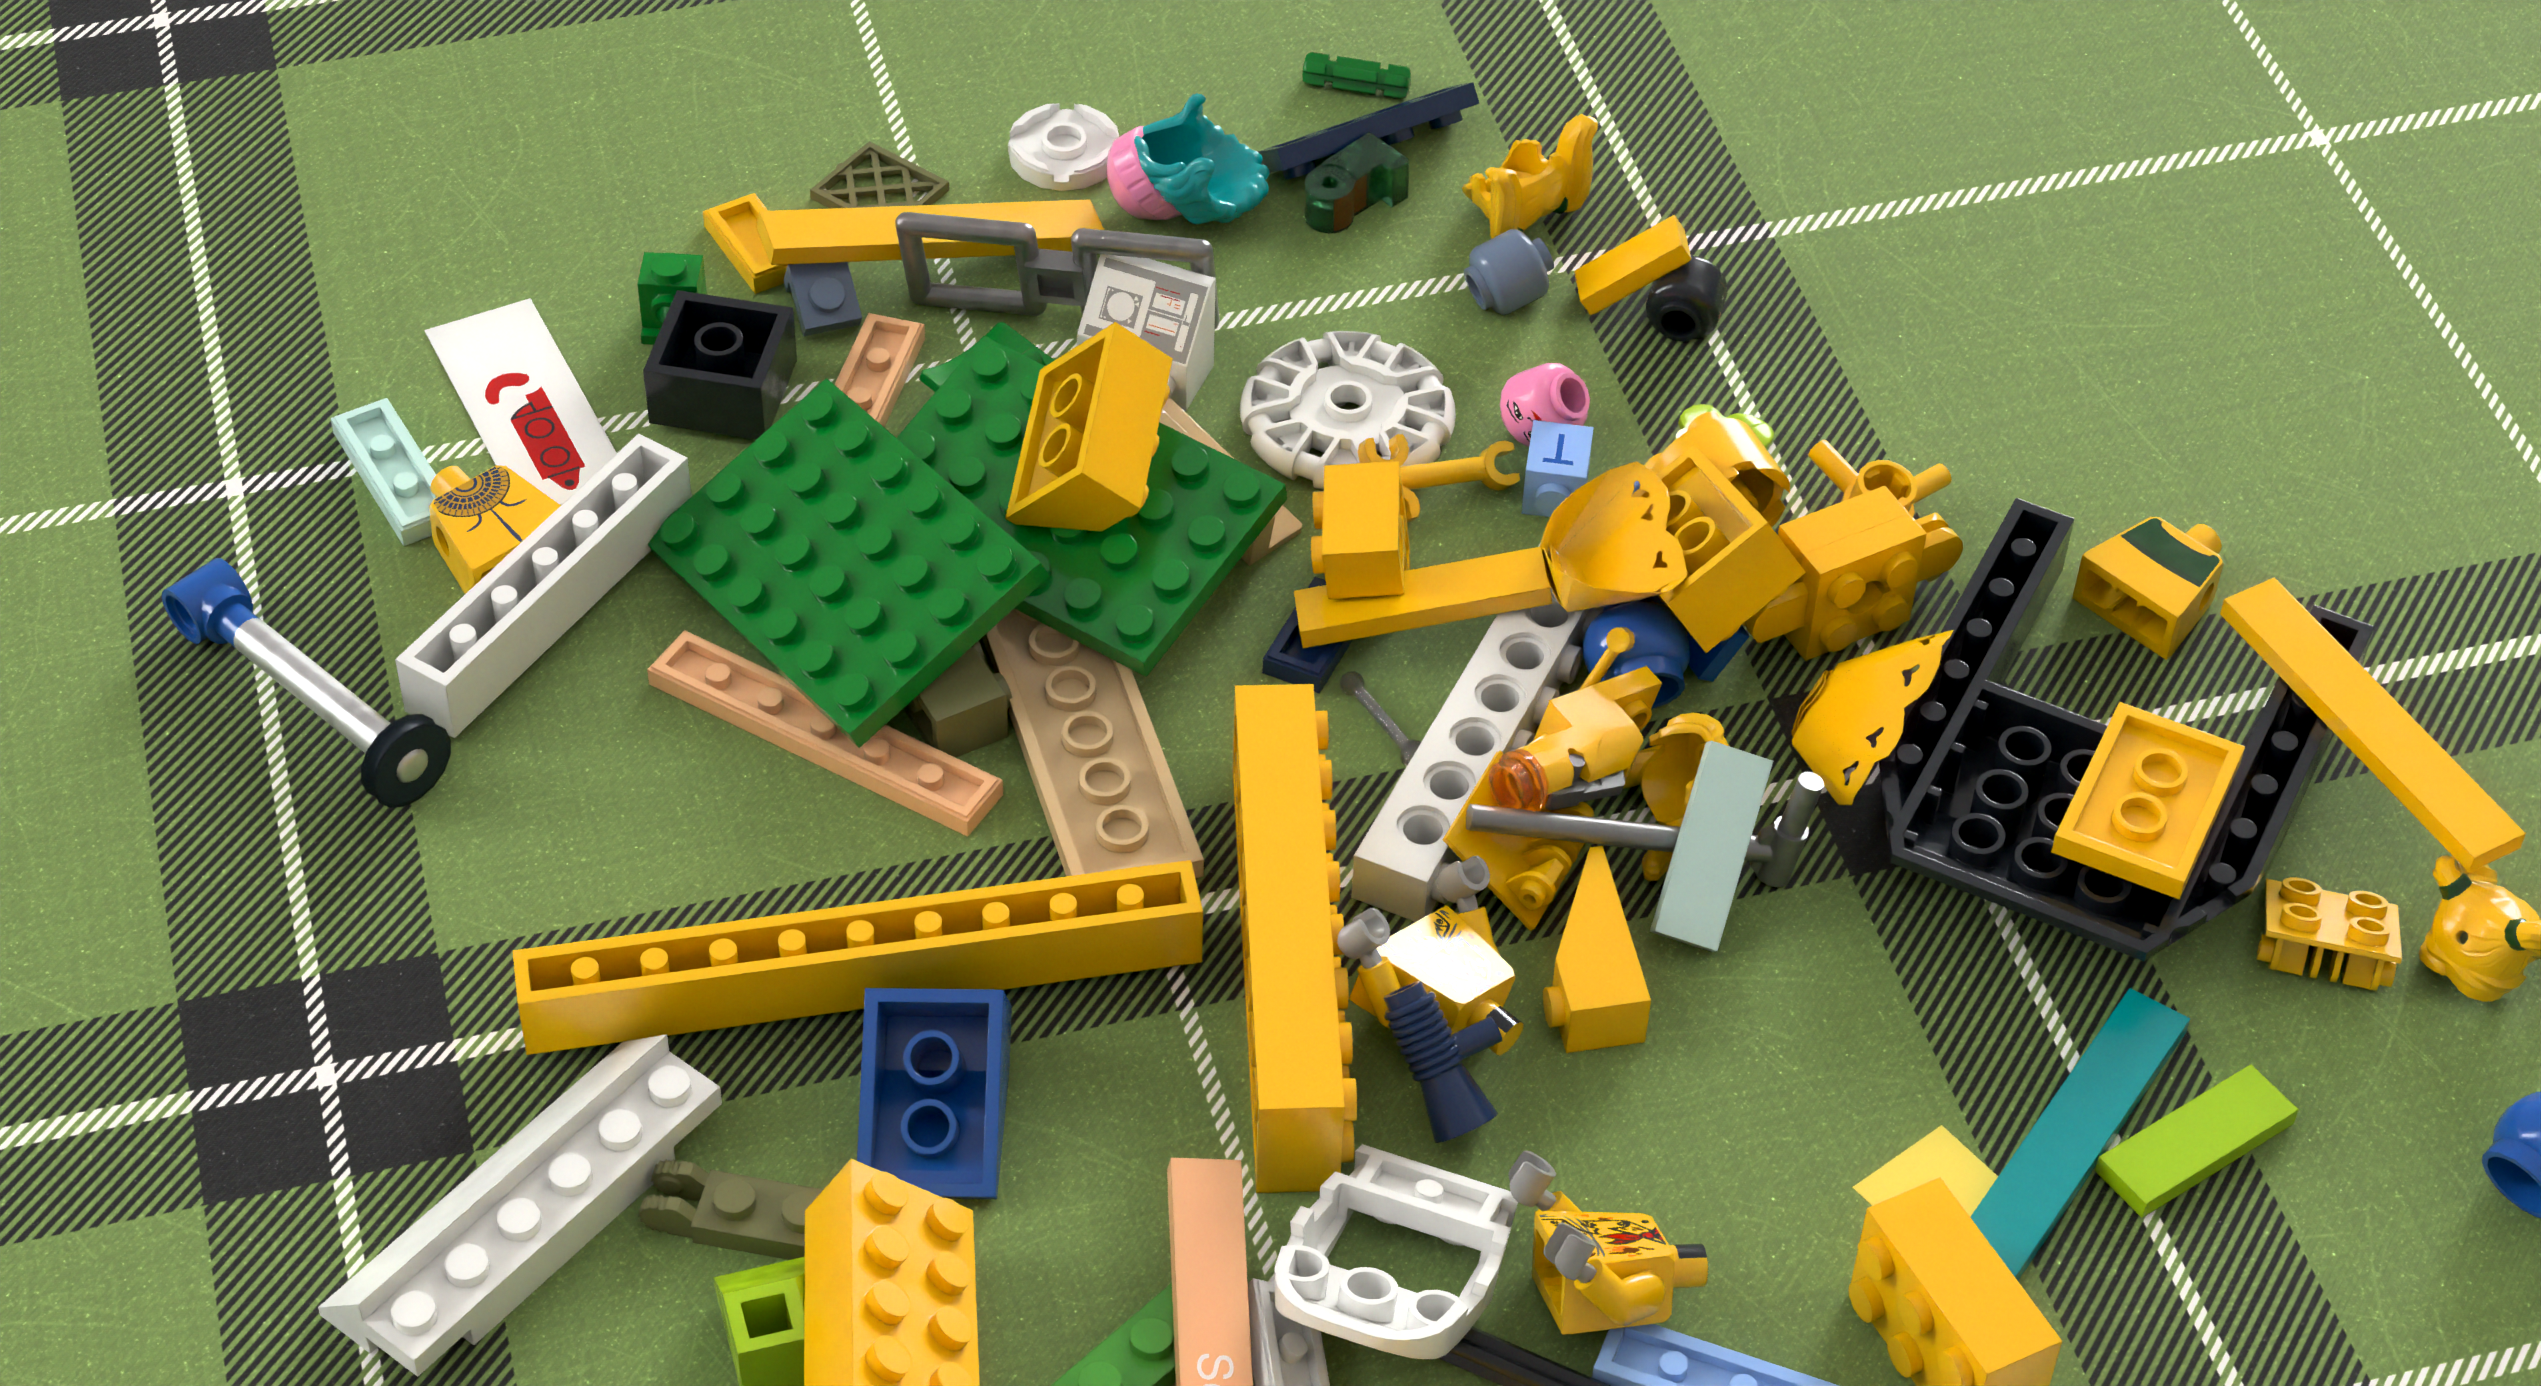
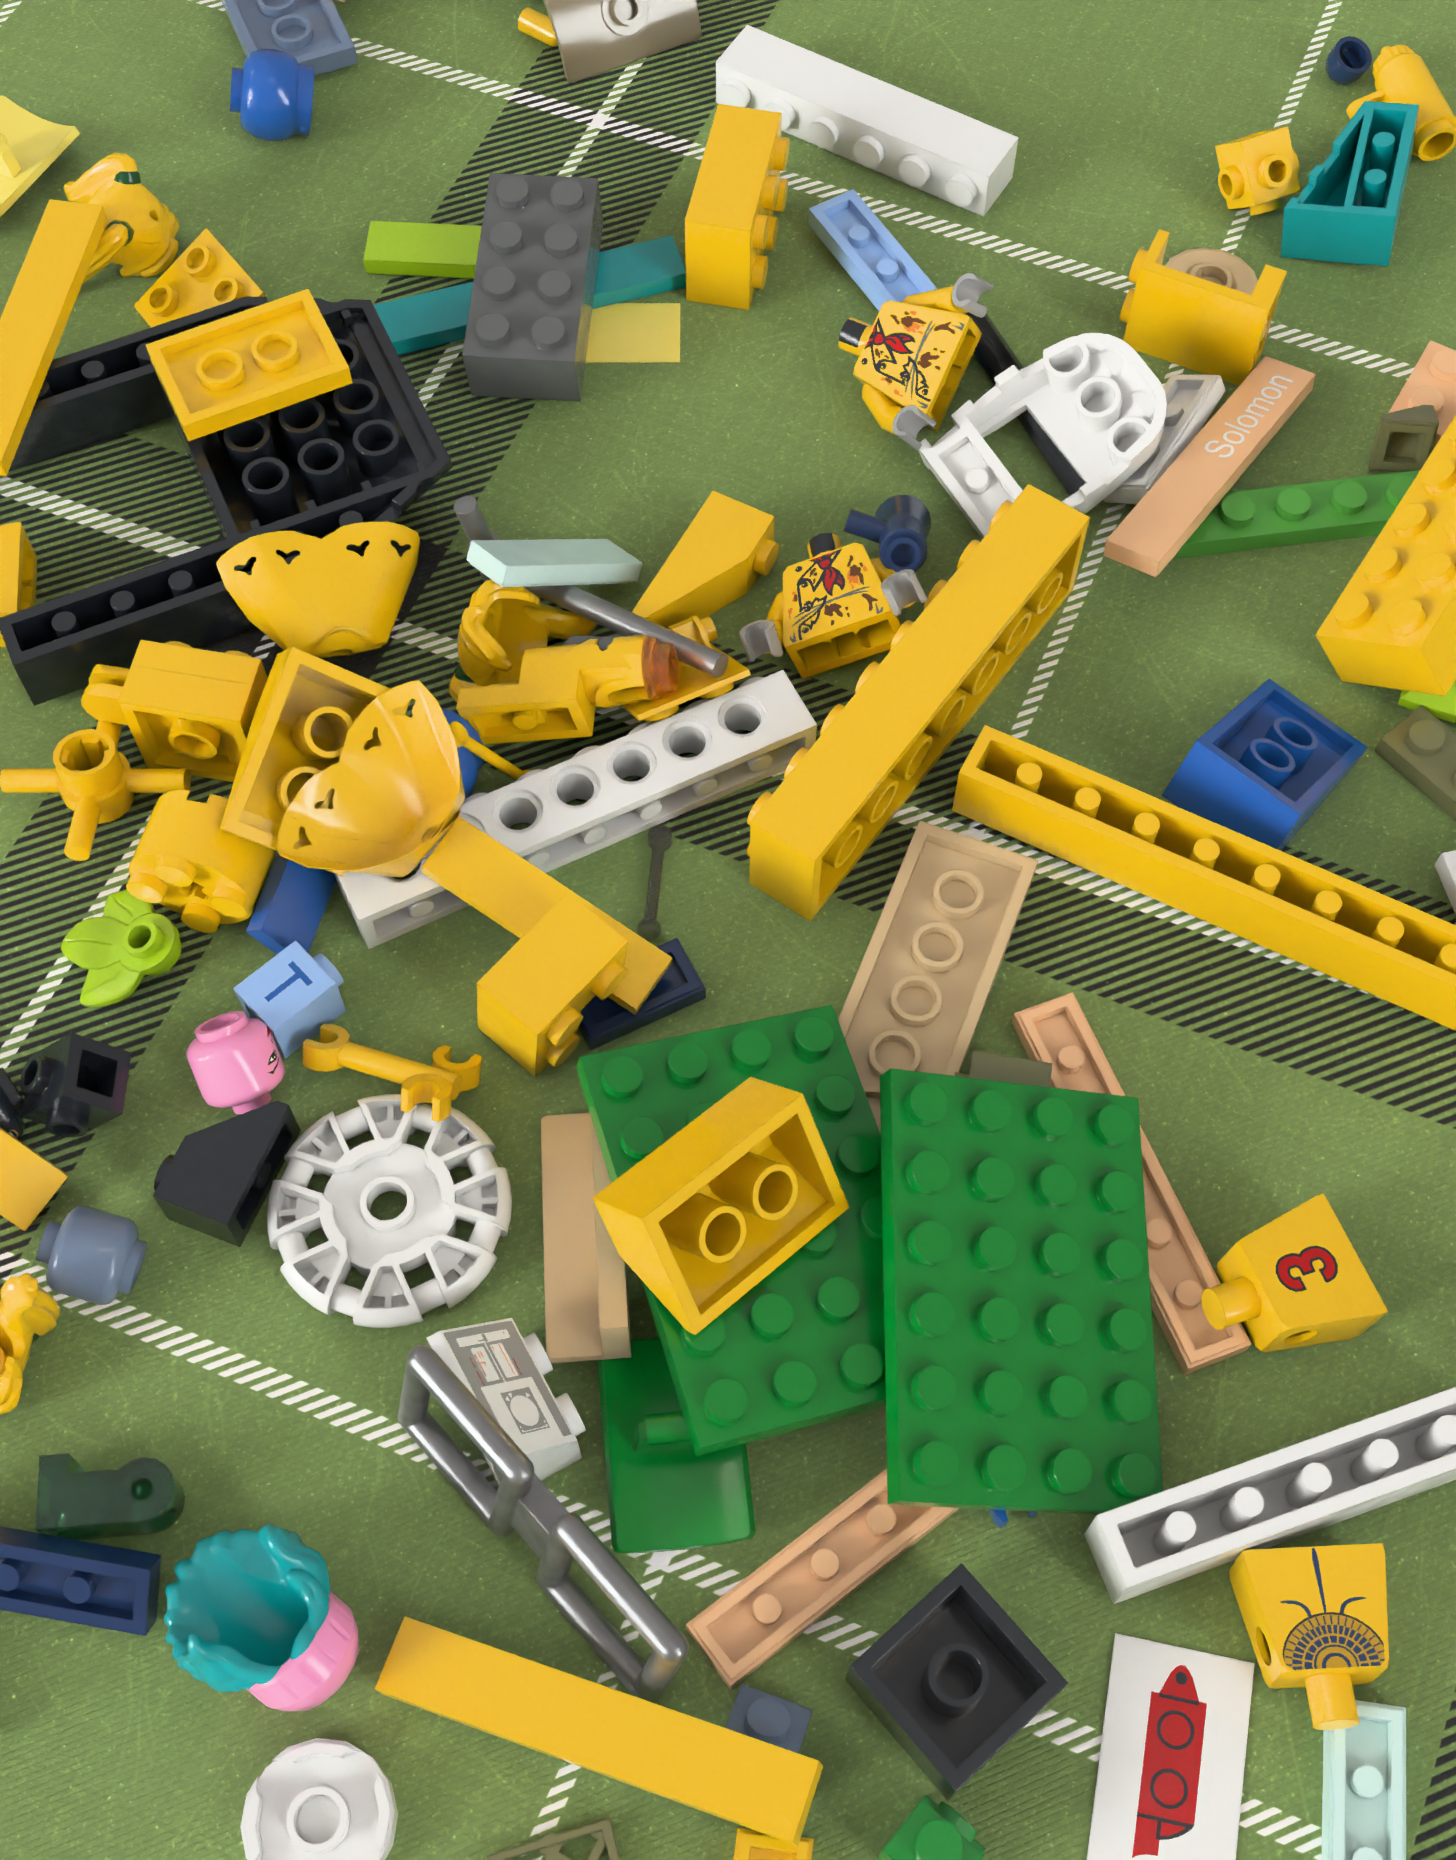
camera: 140 degrees left, 15 degrees up
(639, 706) = (1295, 1283): none -> yellow torso
(1476, 354) = (226, 1172): none -> black slope
(1634, 332) = (75, 1085): none -> black brick
(2042, 1103) = (533, 287): none -> dark grey brick

